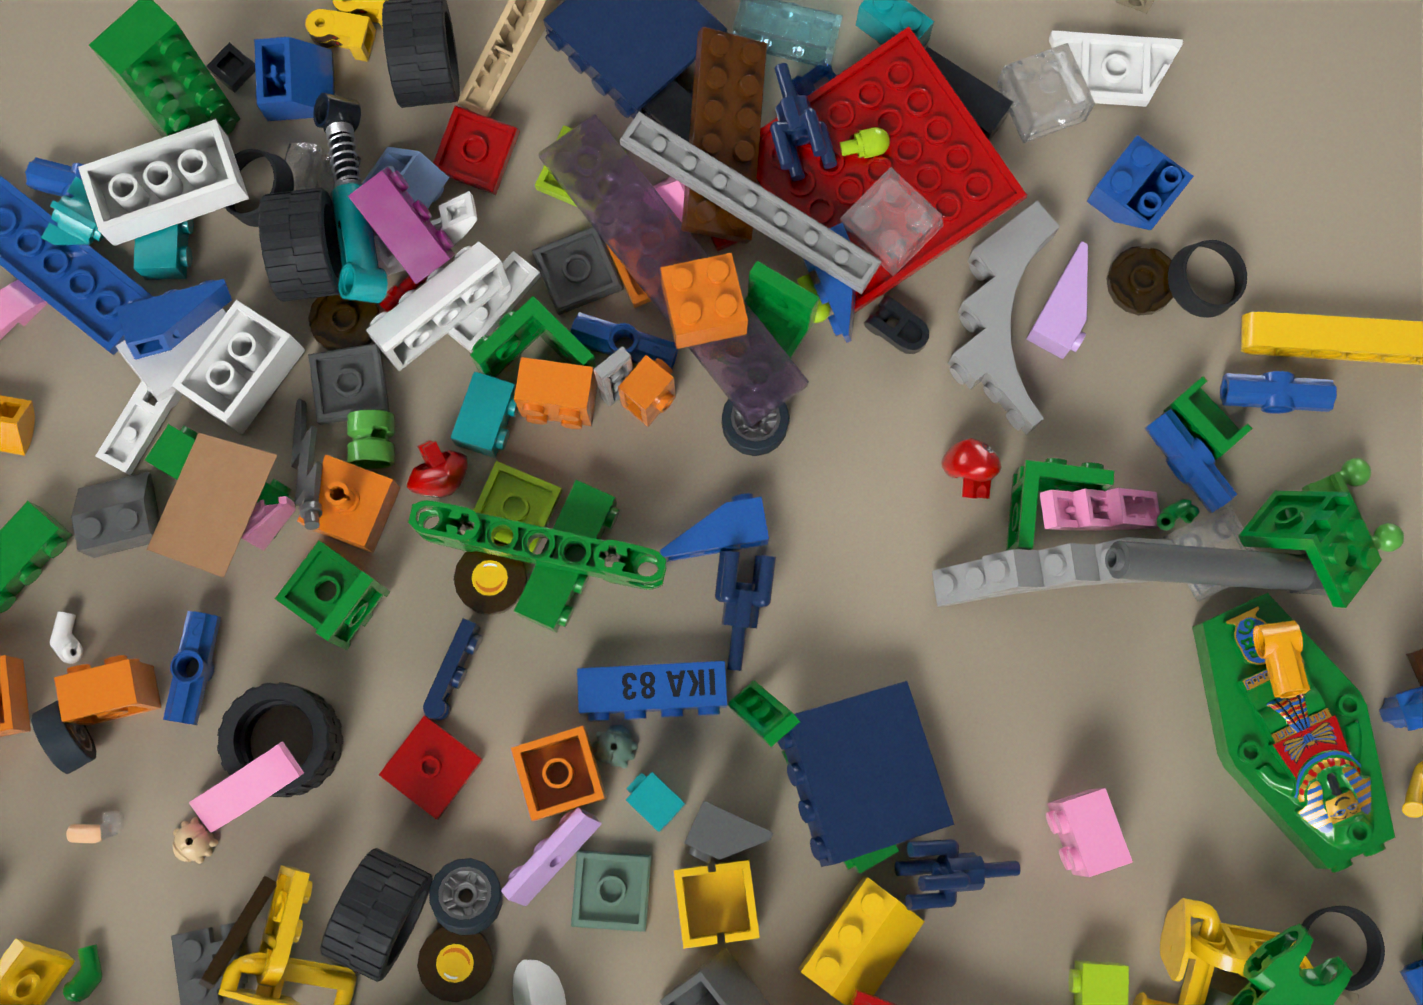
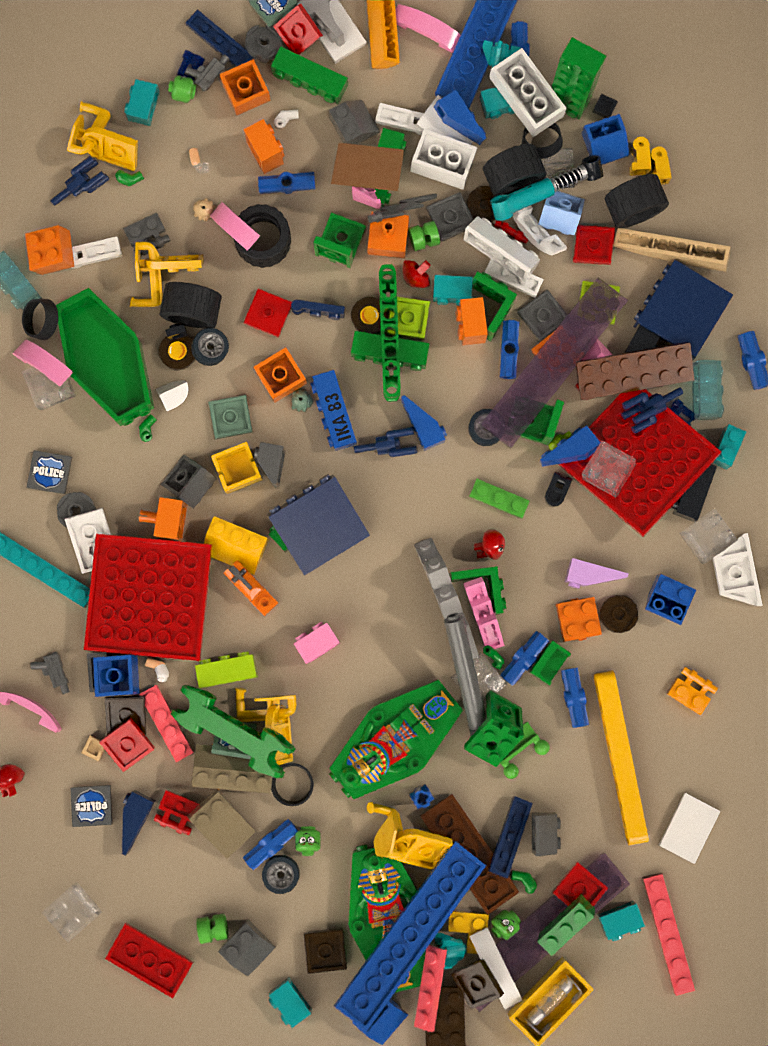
camera: 75 degrees right, 5 degrees up
(64, 743) = (233, 134): black wheel -> none
(237, 933) = (166, 243): dark brown tile -> none
(403, 224) = (537, 218): magenta brick -> none
(419, 956) = (176, 331): none -> black plate
(550, 856) = (239, 382): lavender tile -> none
(612, 373) = (486, 348): light grey tile -> none
(648, 390) = (486, 367): orange brick -> none
(654, 800) = (278, 424): teal brick -> none
(704, 300) = (537, 381): orange brick -> none
(750, 202) = (597, 391): light grey tile -> none
(763, 713) = (334, 465): green tile -> none
(867, 143) = (649, 445): lime cylinder -> none
(888, 432) = (499, 498): none -> bright green plate
(950, 872) = (280, 579): dark blue plant -> none
(952, 933) = (251, 588): none -> orange plate
(988, 311) = (578, 534): light grey arch -> none
(1138, 350) = (578, 619): none -> orange plate
(1182, 290) = (616, 634): black tyre -> none
(1281, 648) = (432, 718): light orange piece -> none
(1310, 202) = (689, 696): none -> light orange plate

